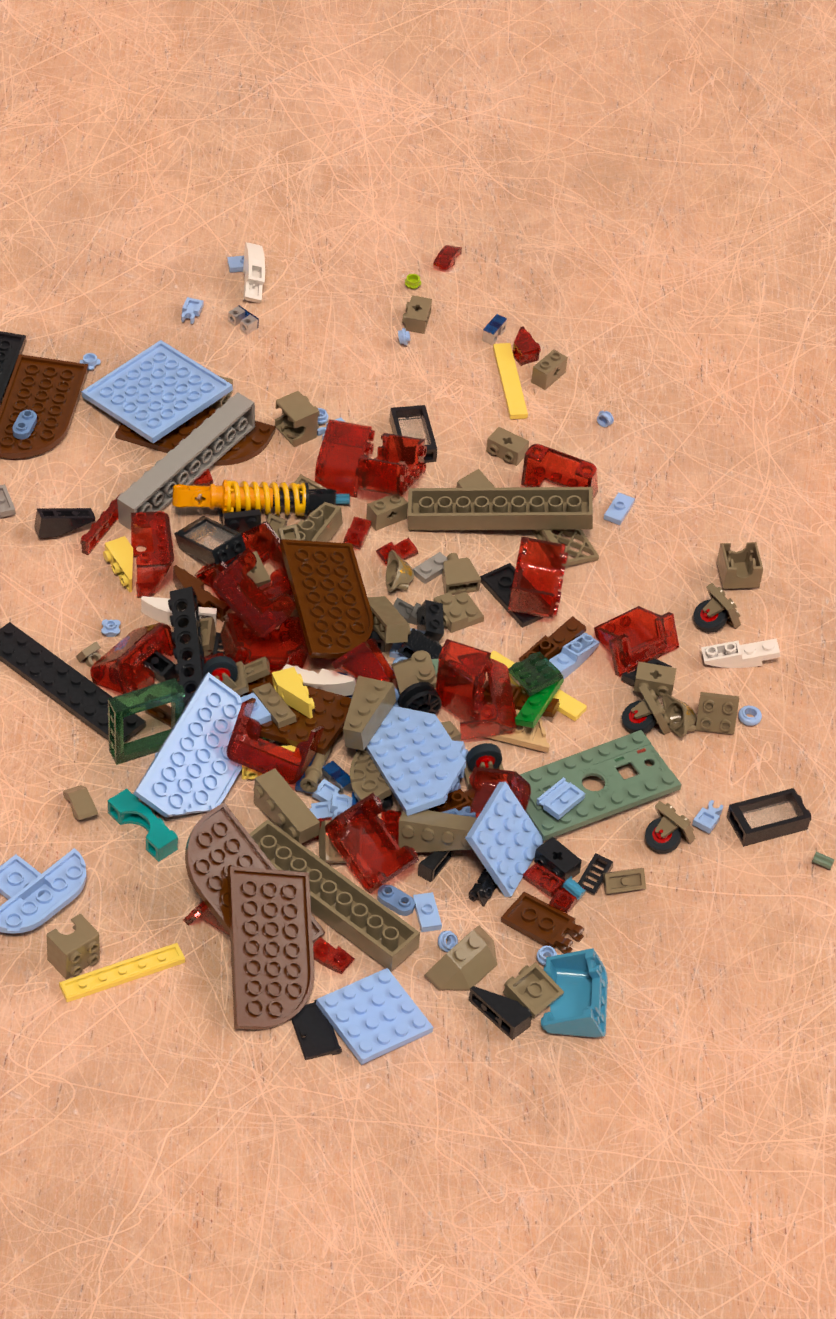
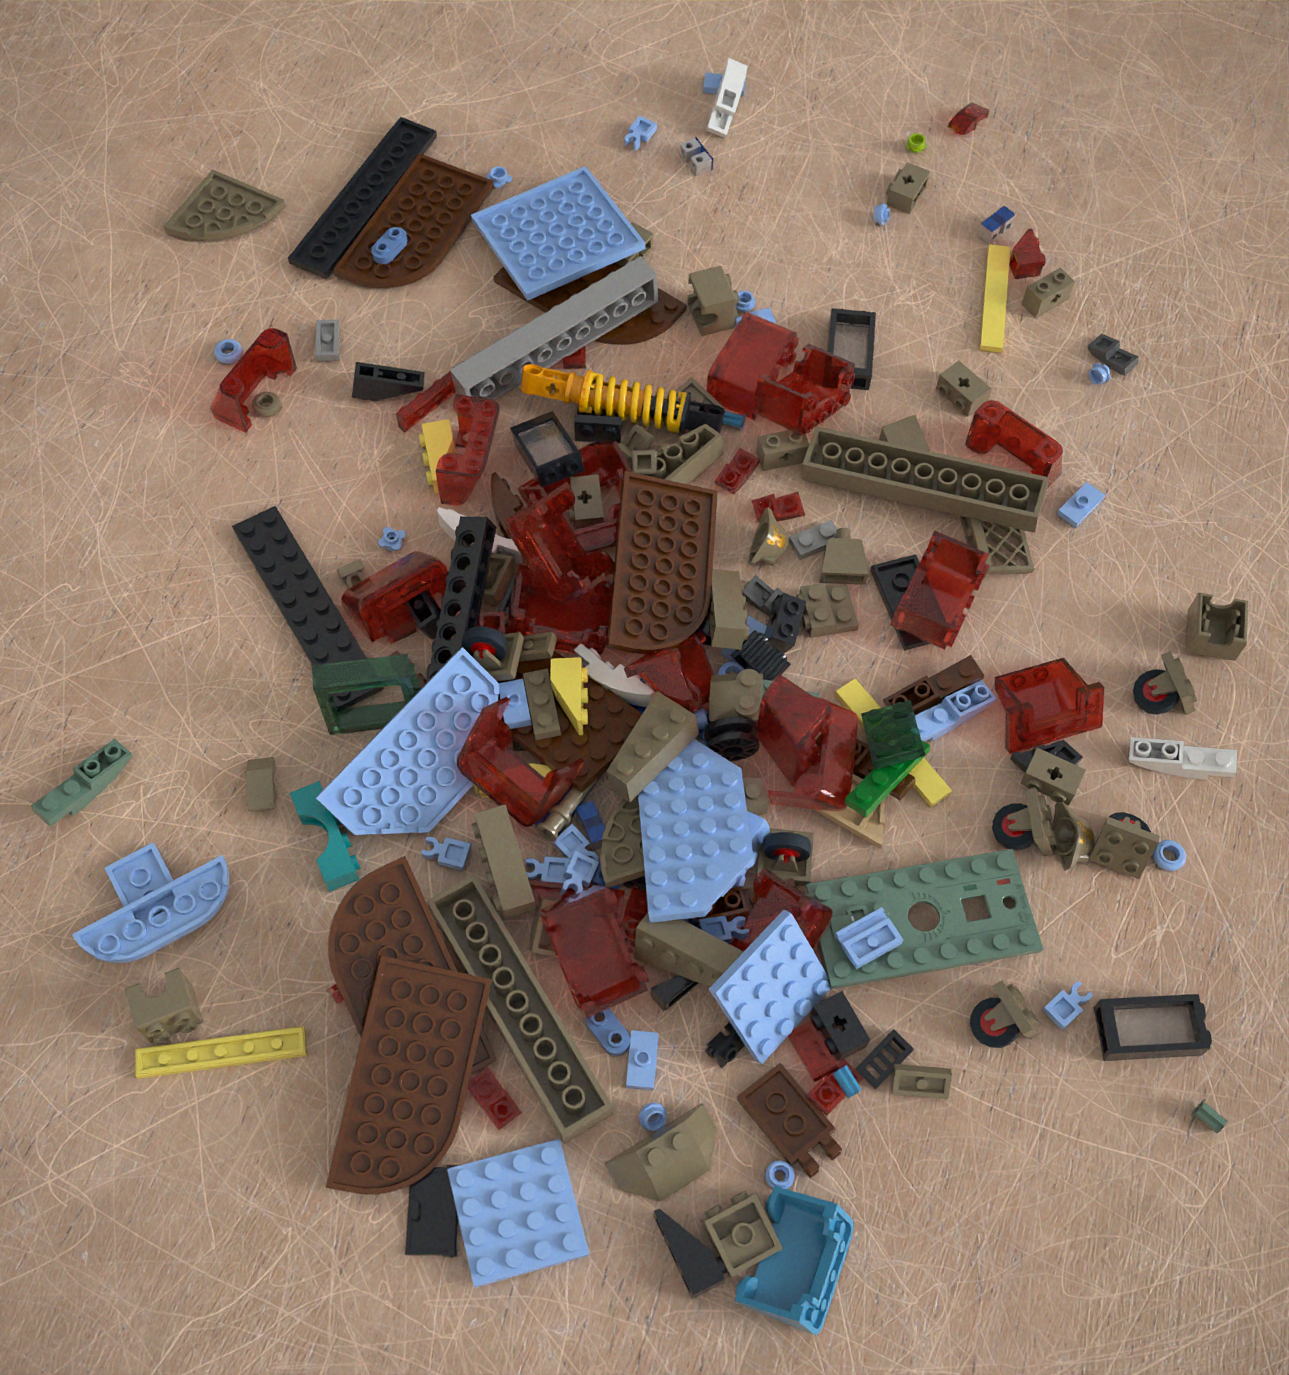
camera: 20 degrees right, 15 degrees up
(245, 816) = (450, 853): none -> light blue plate
(606, 402) = (1109, 352): none -> dark grey slope

